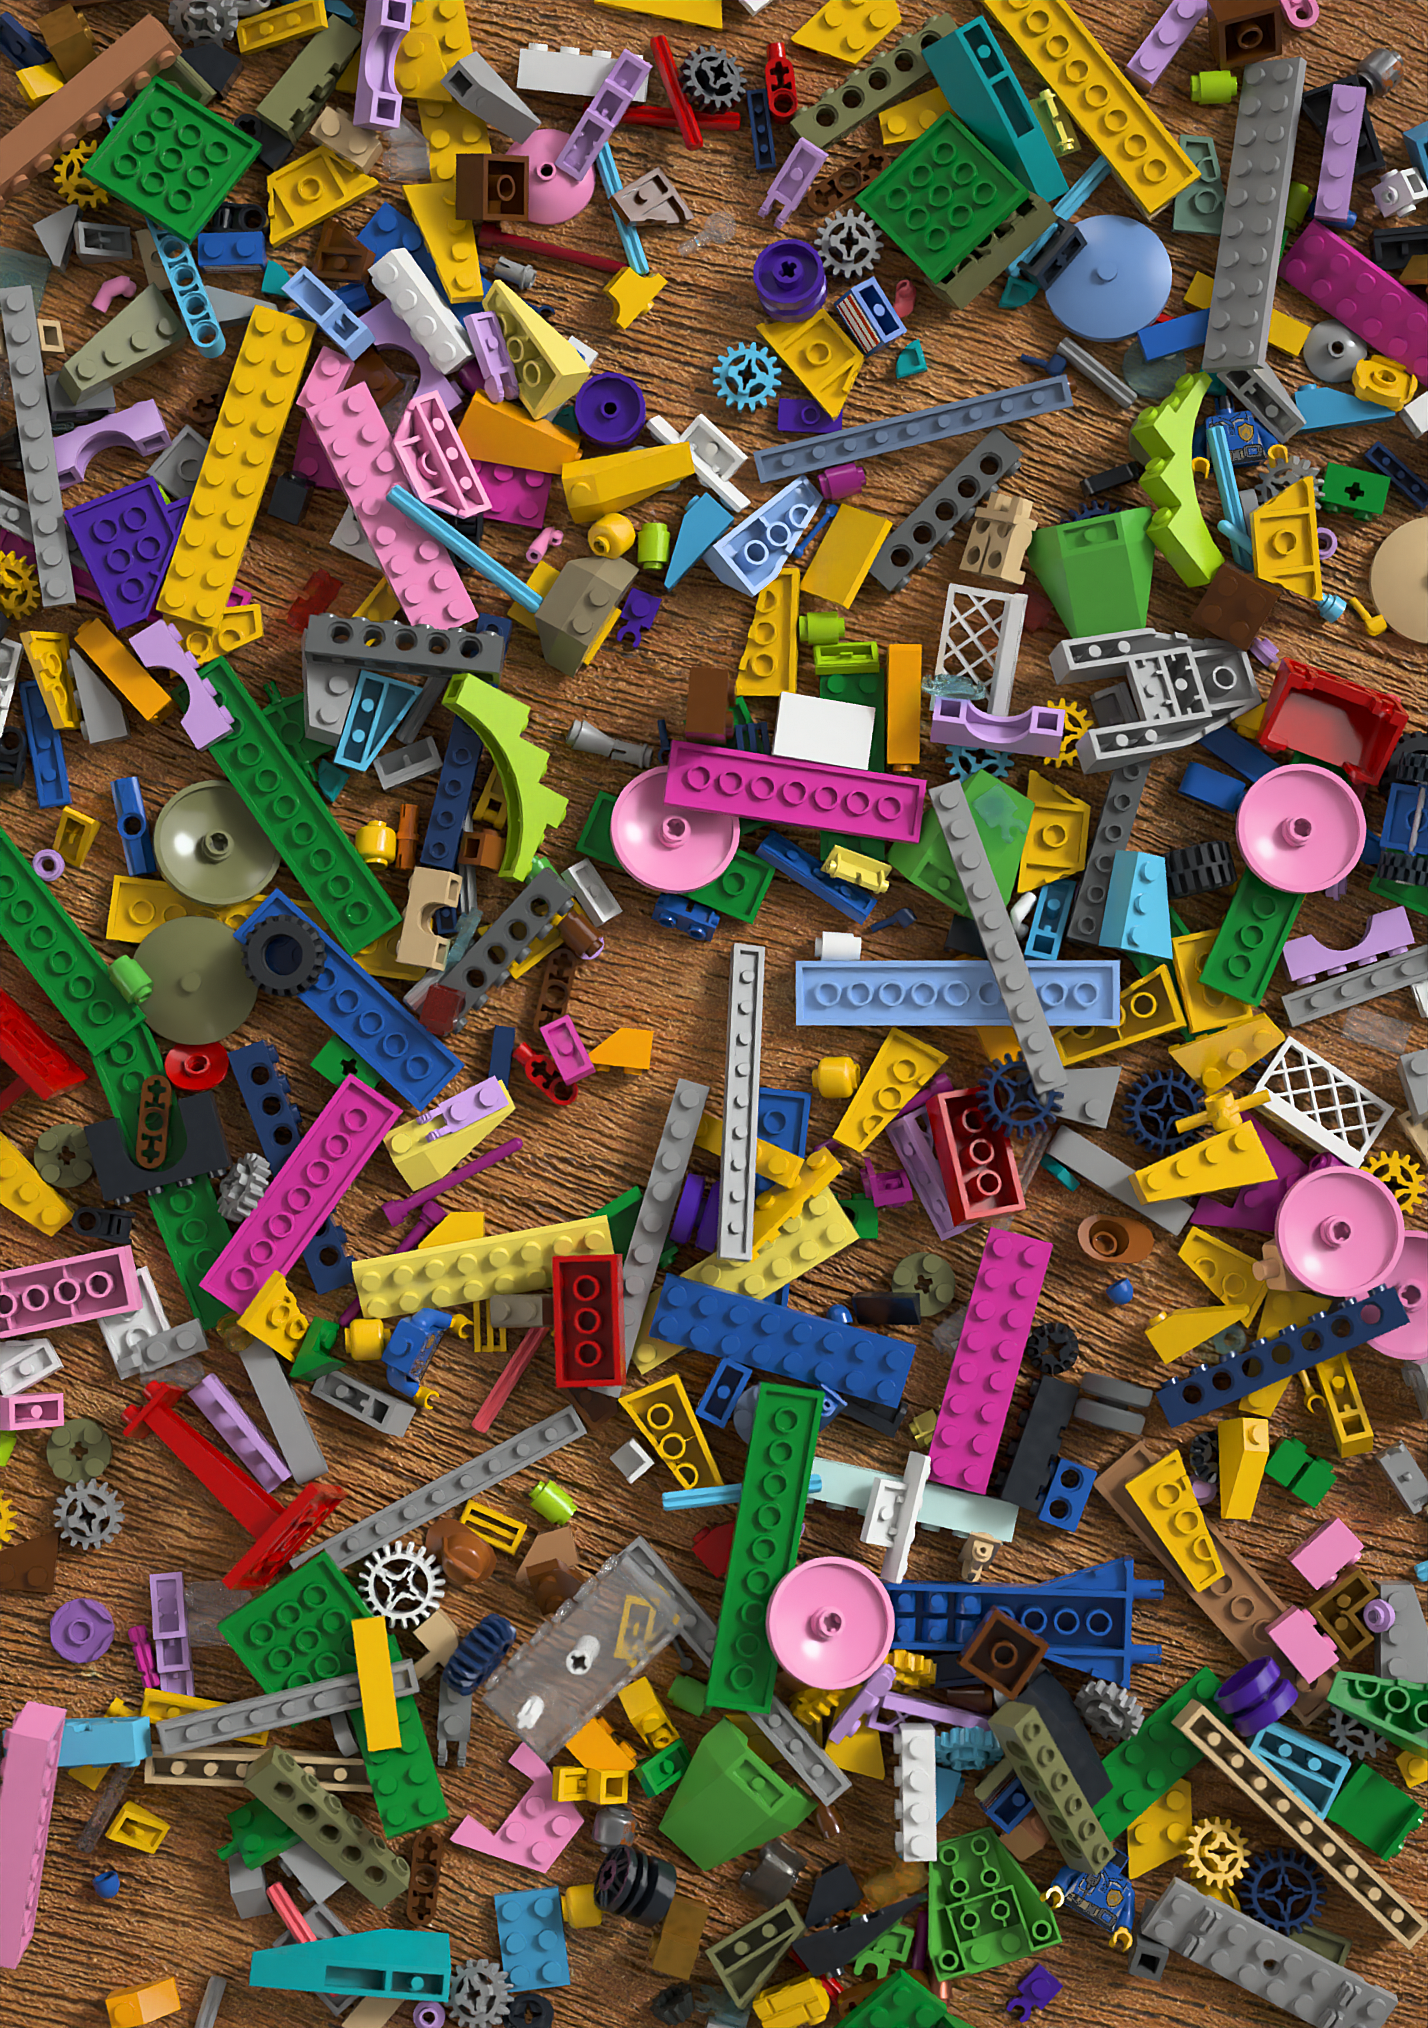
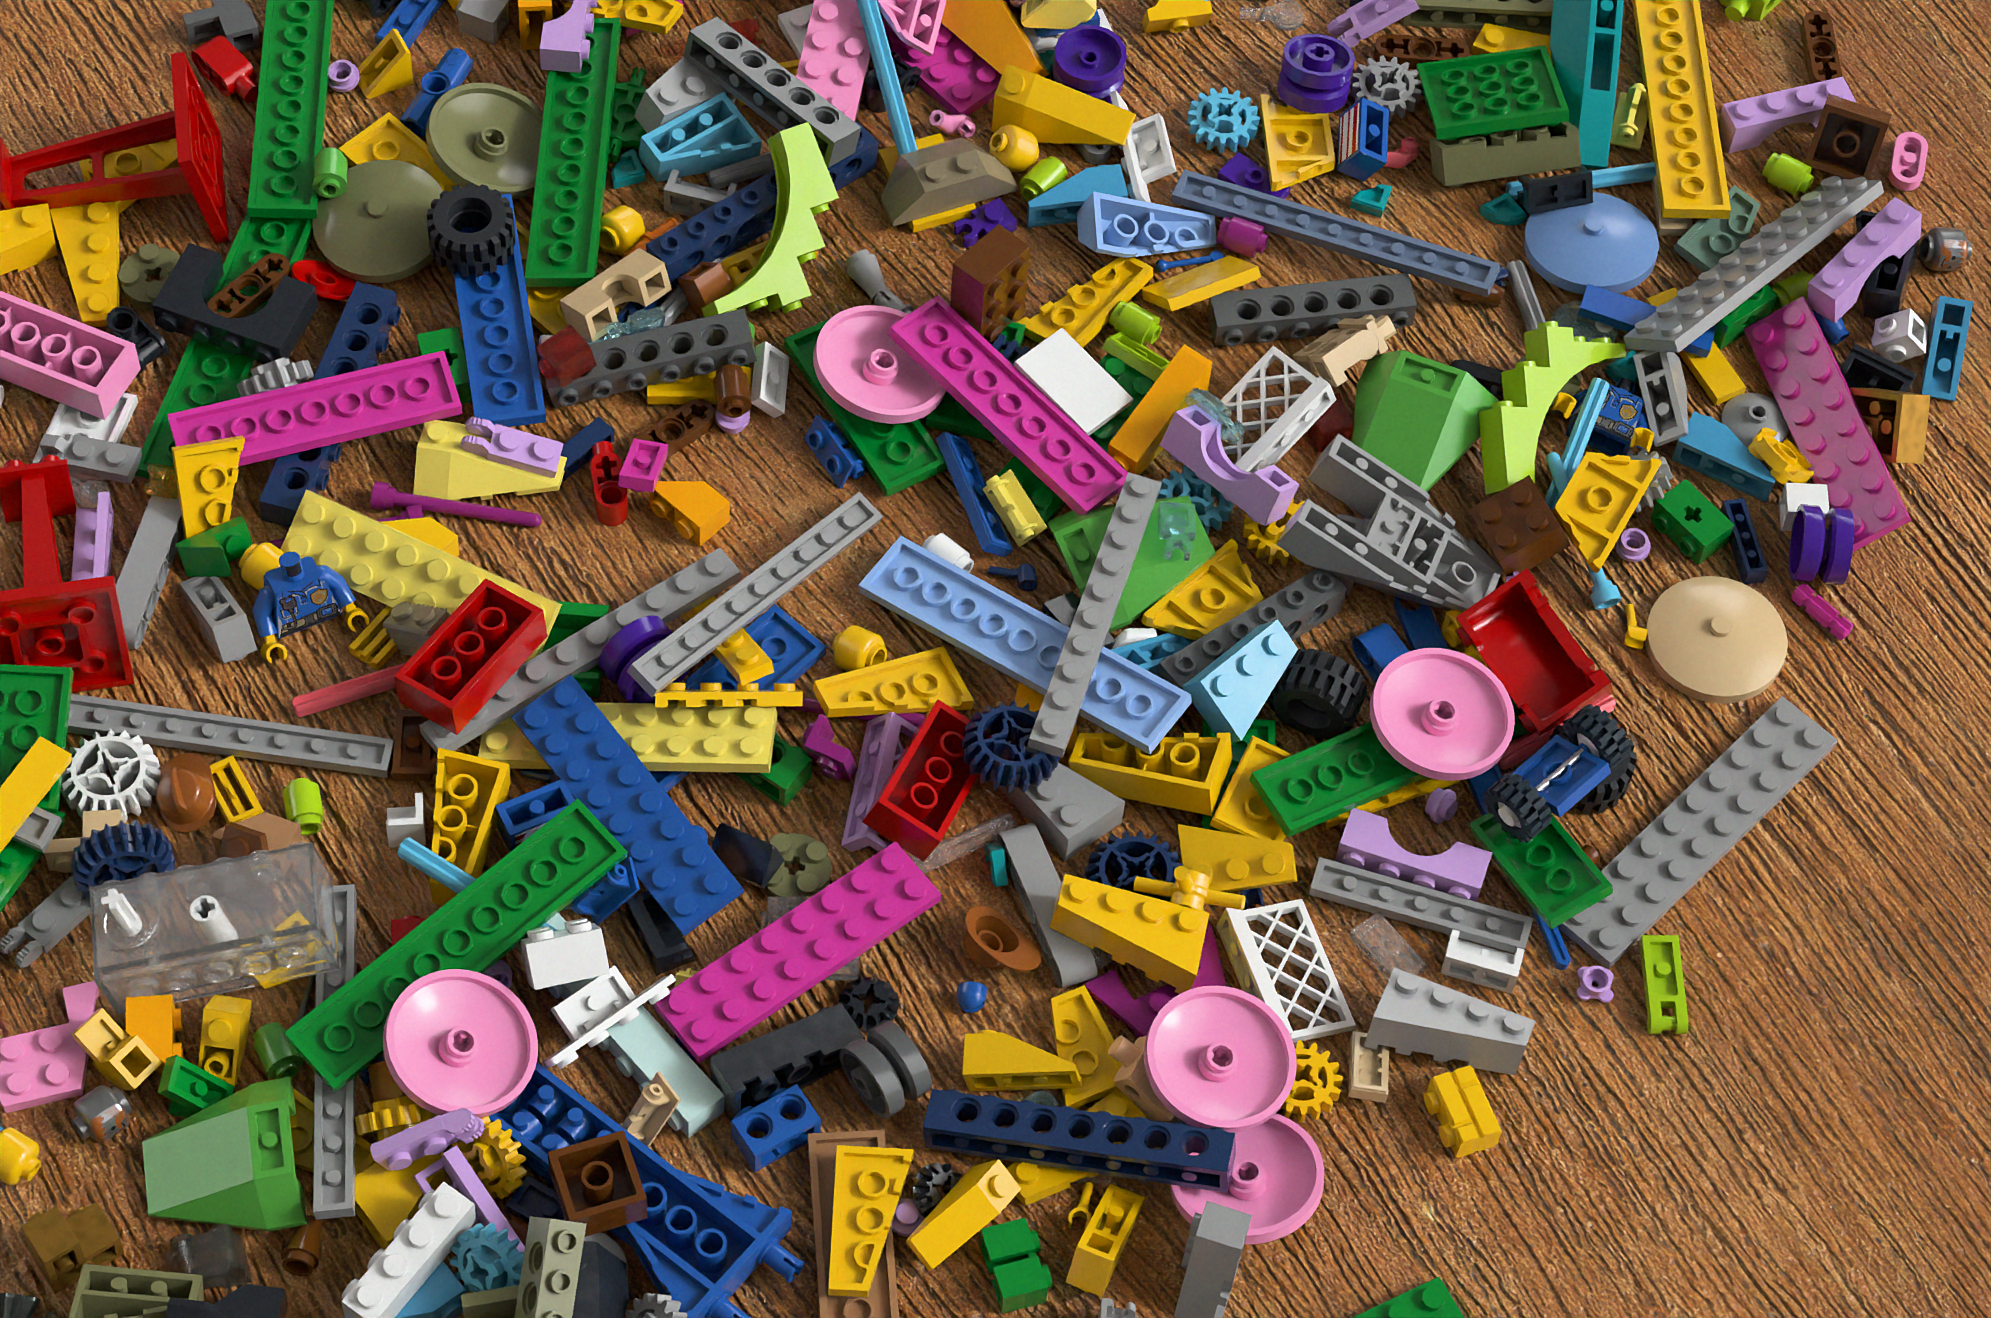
camera: 35 degrees right, 30 degrees down
(635, 1886) = (73, 1157): black wheel -> none
(845, 1503) = (564, 954): none -> white brick

